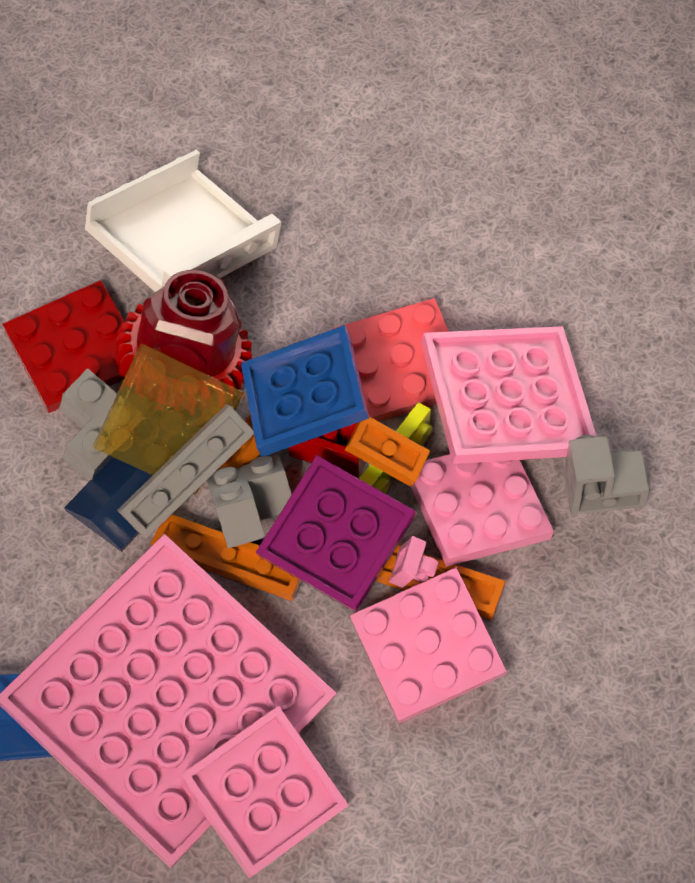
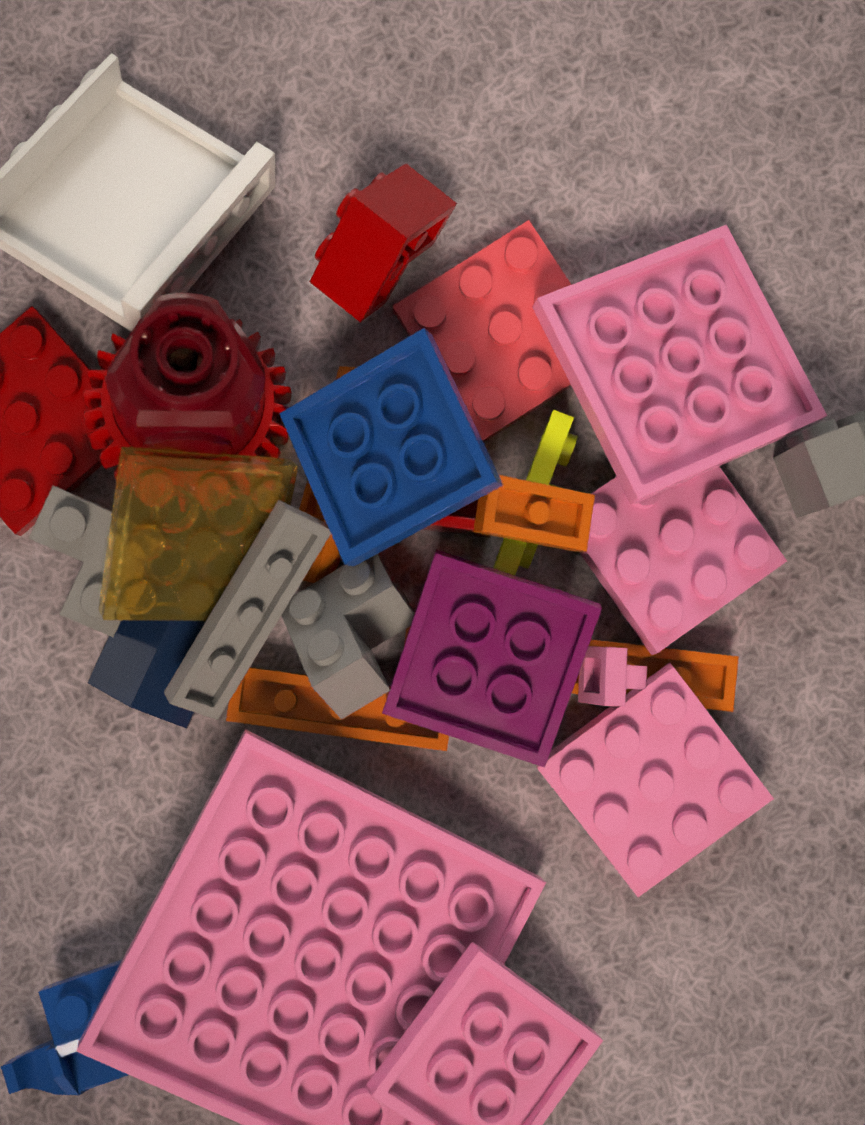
camera: 15 degrees left, 25 degrees up
(331, 283) = (378, 238): none -> red brick

